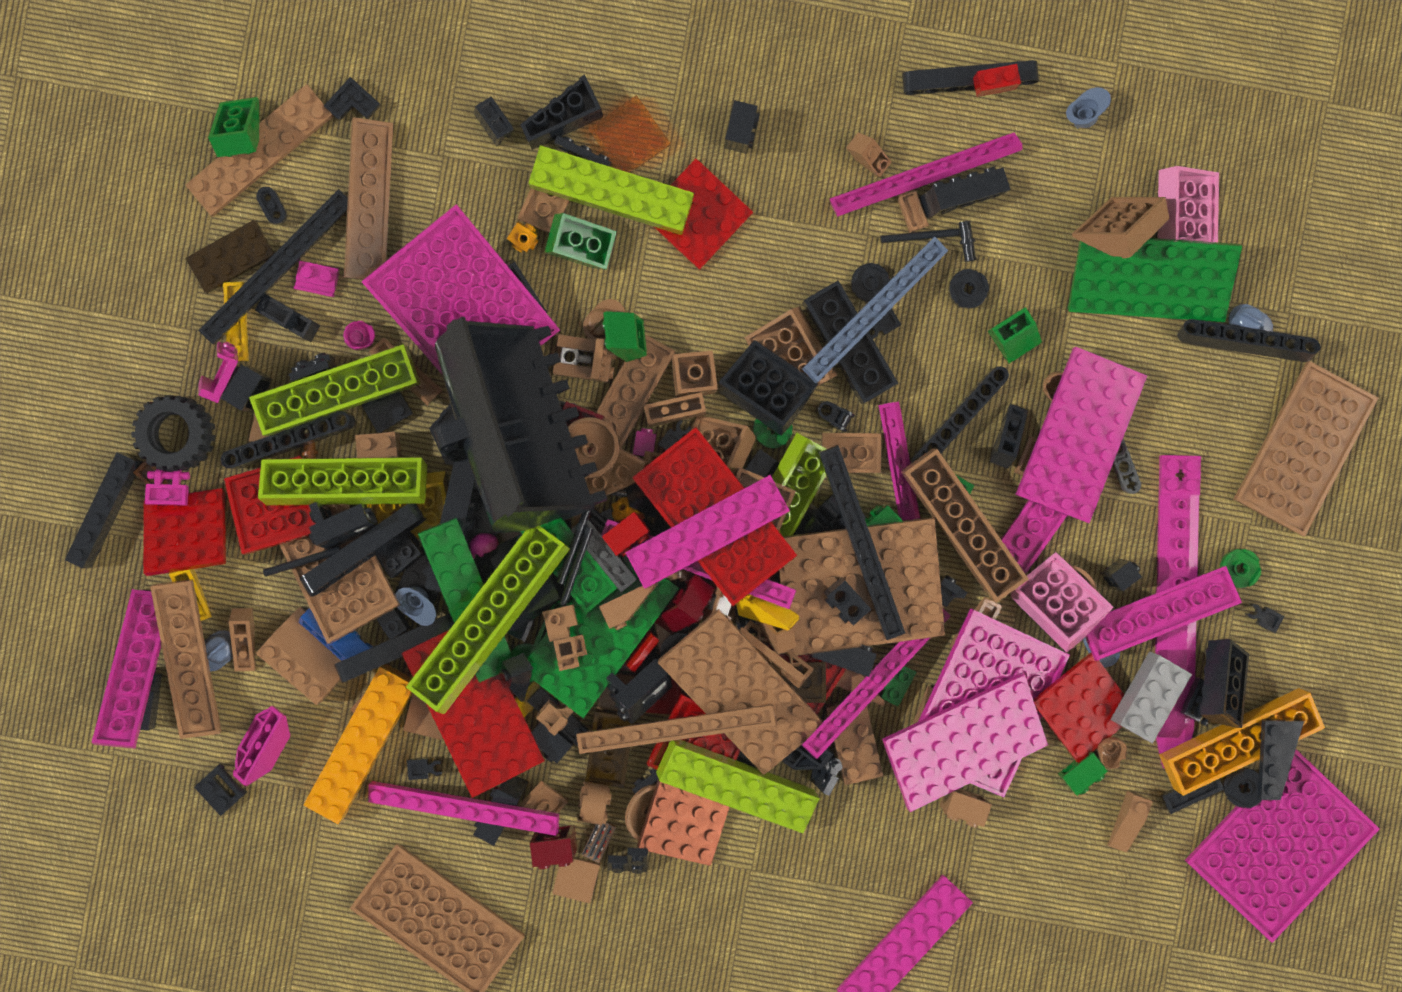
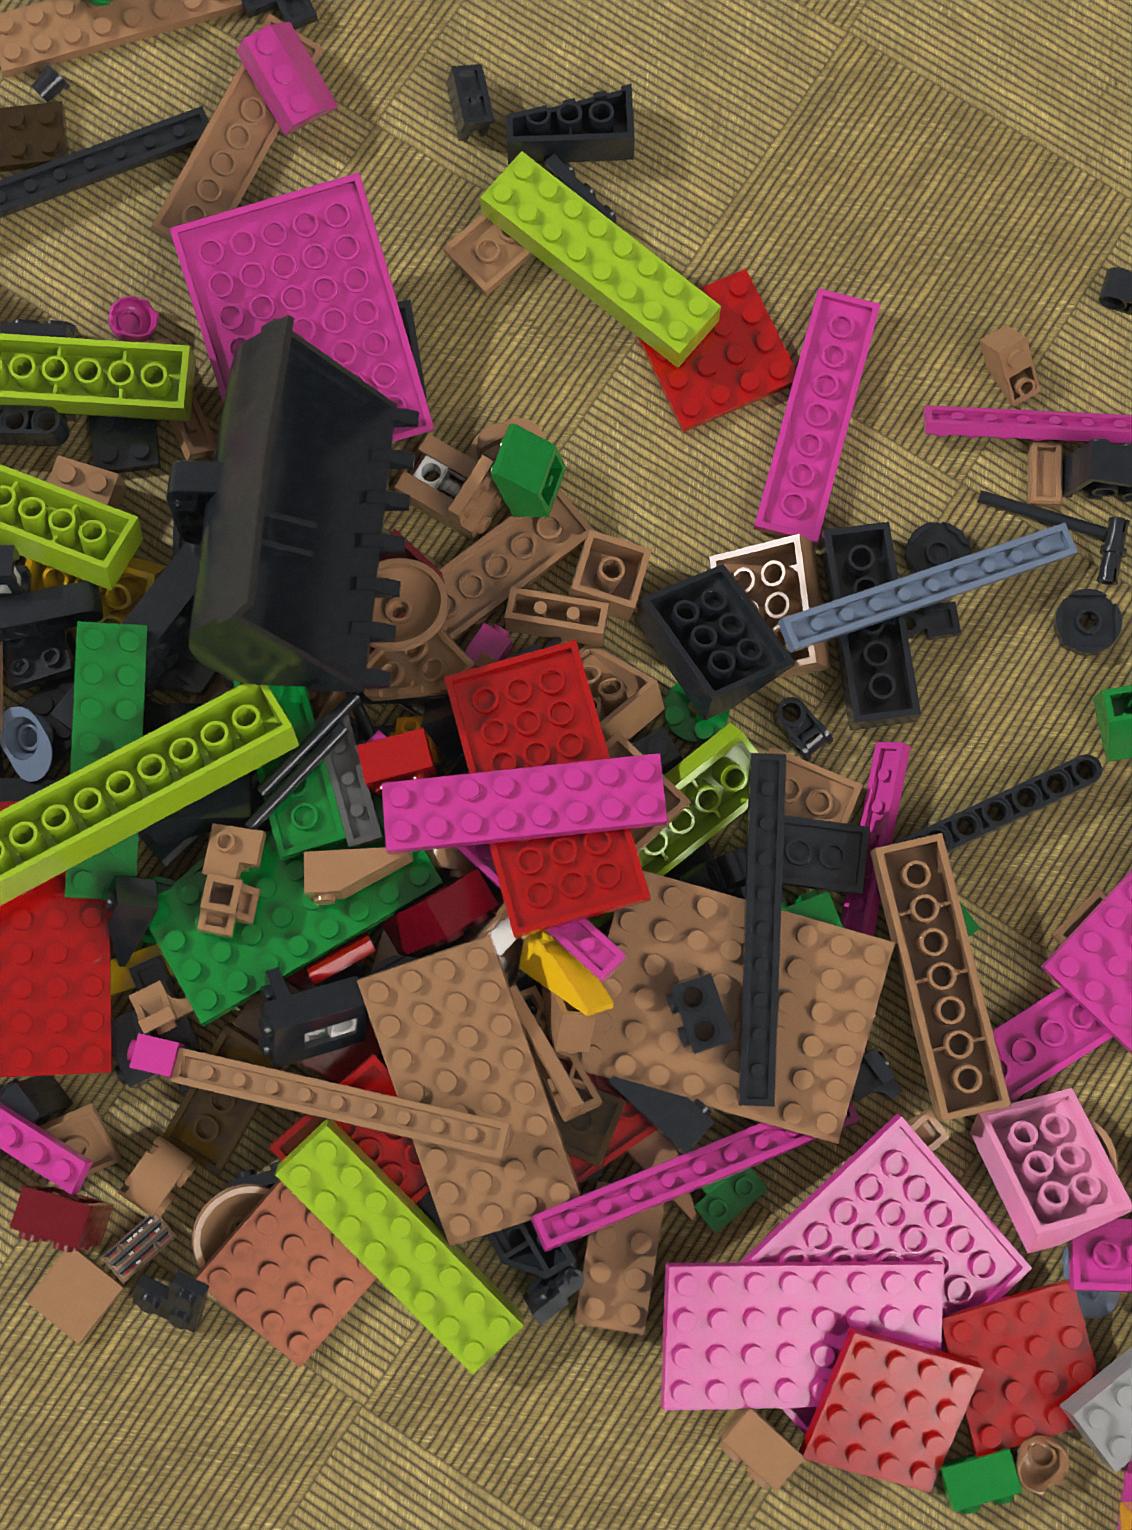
camera: 25 degrees right, 10 degrees down
(242, 211) = (49, 83): none -> black piece
(272, 206) = (95, 95): black plate -> none
(287, 318) = (42, 255): black slope -> none
(316, 279) = (111, 219): dark pink plate -> none
(381, 152) = (286, 76): none -> dark pink slope
(482, 544) = (170, 690): dark pink hair -> none
(521, 229) = (431, 268): light orange brick -> none
(564, 743) = (153, 1054): none -> dark pink brick
(580, 241) = (521, 315): green brick -> none
(629, 136) = (661, 198): clear orange plate -> none
(741, 123) = (832, 247): black brick -> none
(771, 230) = (817, 416): none -> dark pink plate
(877, 482) = (824, 855): none -> black plate
(1009, 436) = (1065, 874): black slope -> none
(1025, 759) = (890, 1409): none -> plate

